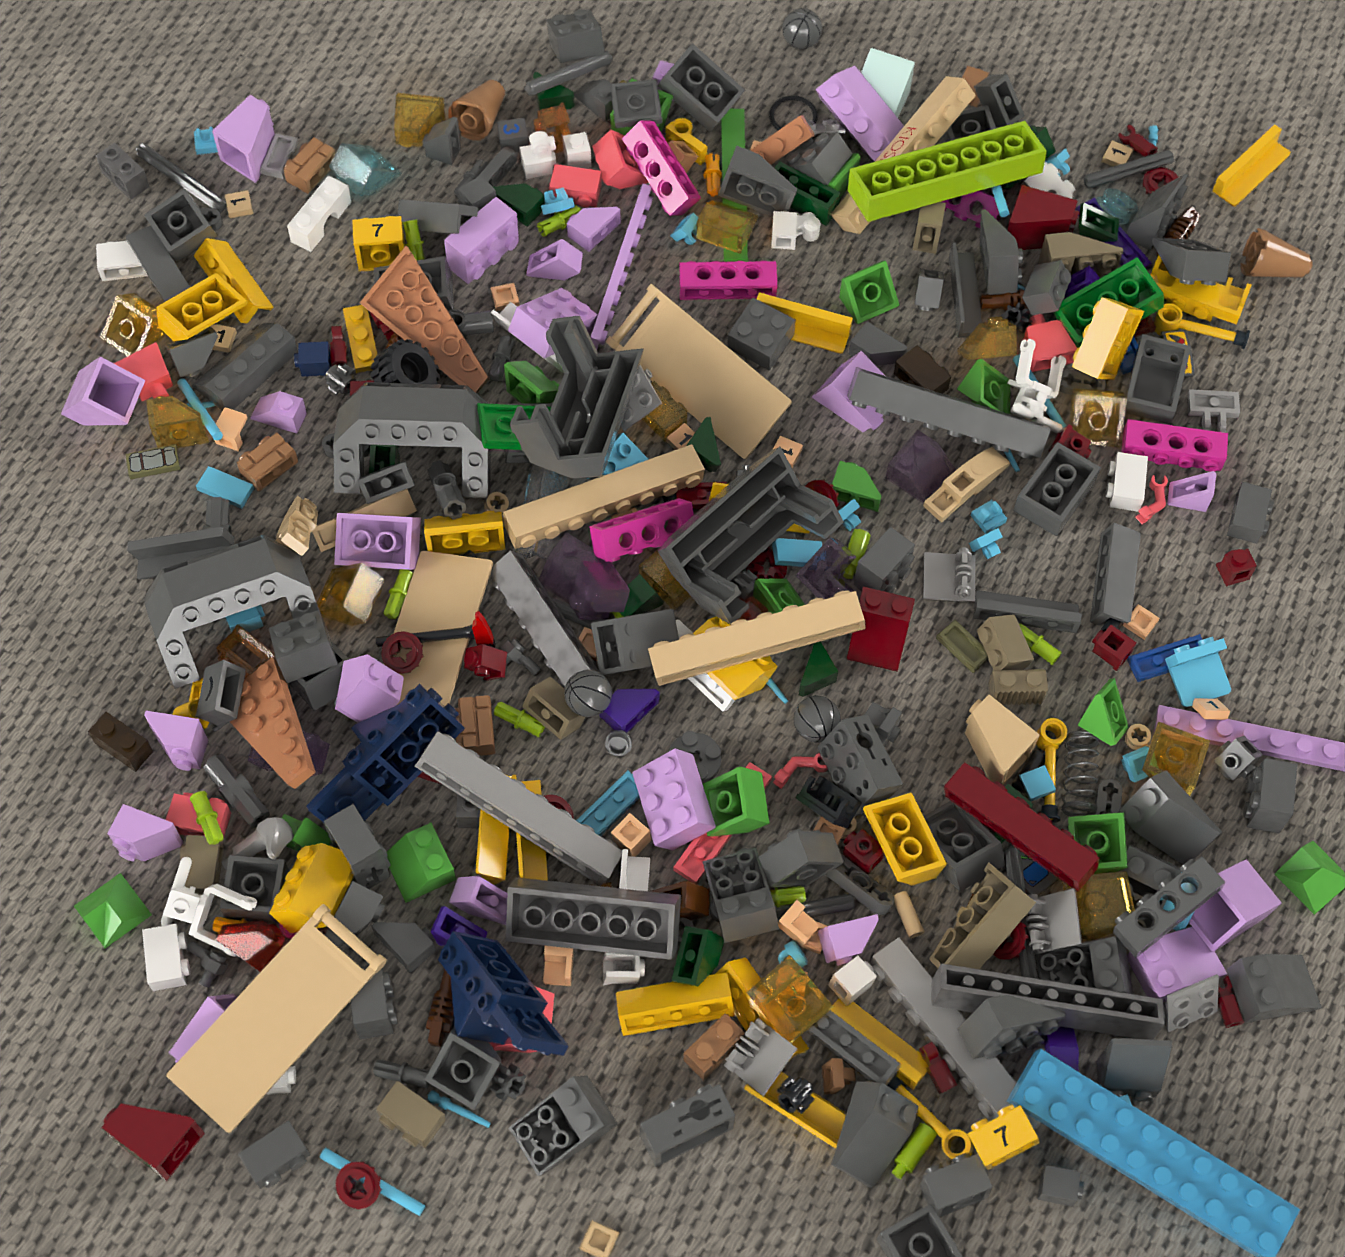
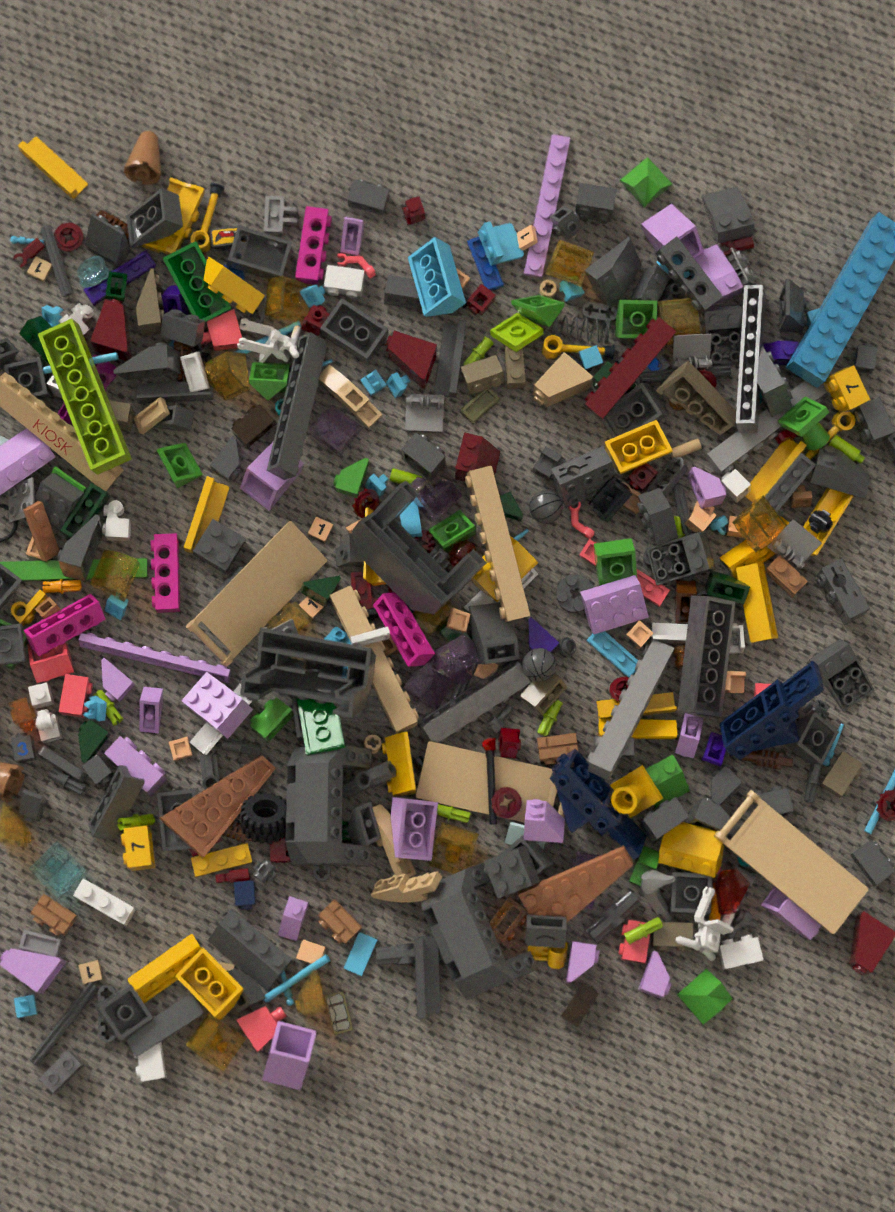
camera: 90 degrees left, 15 degrees up
(400, 813) = (634, 792): none -> yellow plant
(630, 481) = (370, 637): none -> white tile
(653, 594) = (458, 620): none -> light nougat tile
(931, 262) = (151, 415): none -> tan tile
(952, 1076) = (804, 421): none -> bright green plant
(989, 306) = (194, 372): none -> white tile
(1022, 555) = (412, 356): none -> dark red slope
(1068, 686) = (516, 332): none -> lime tile
(1105, 444) = (313, 295): none -> medium azure tile
(1138, 586) = (436, 278): none -> medium azure slope

